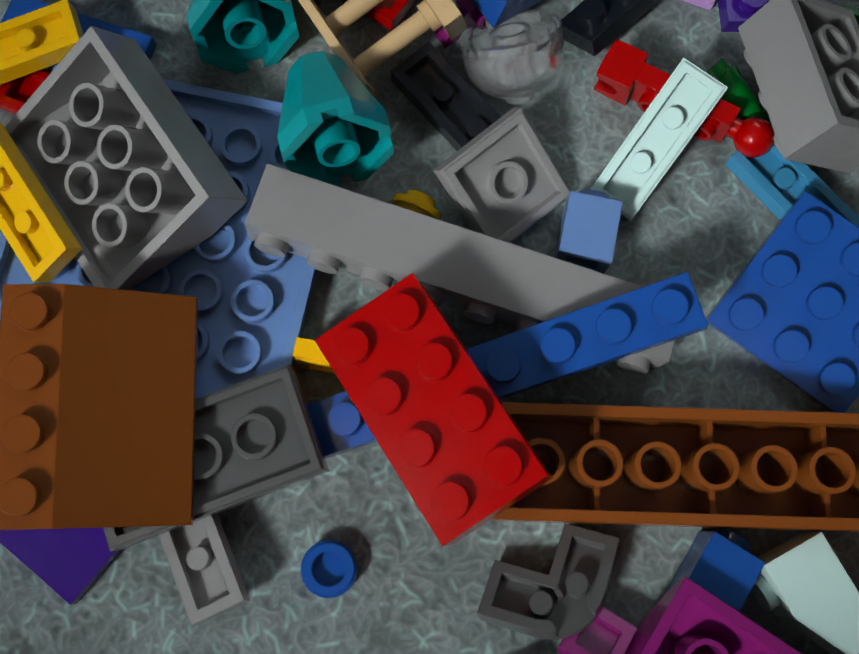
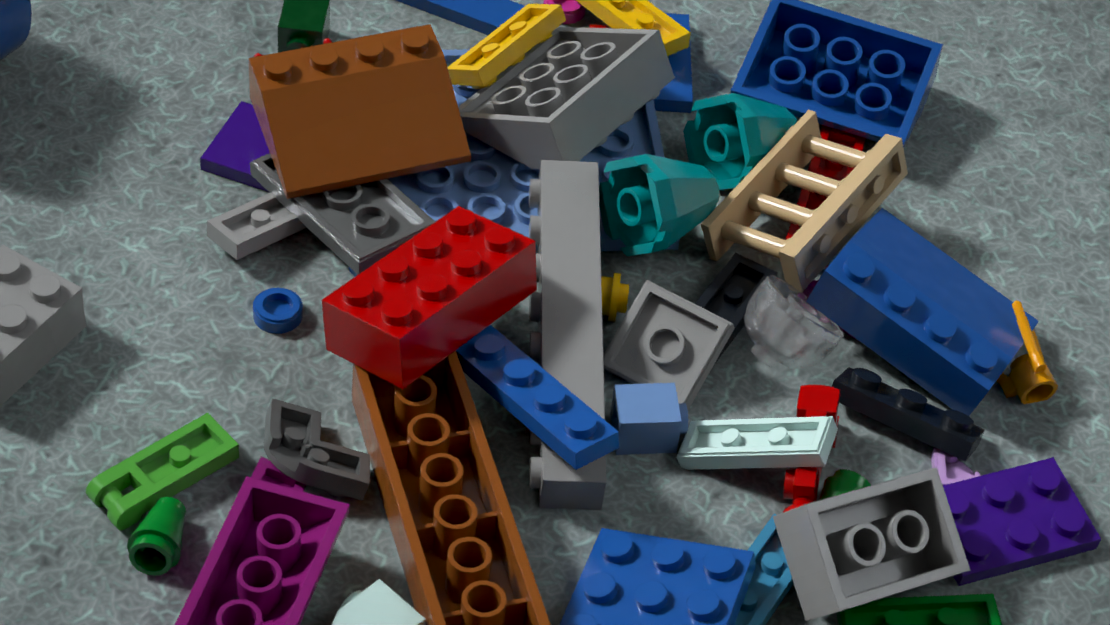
camera: 70 degrees right, 30 degrees down
(721, 566) = (359, 561): blue brick -> none

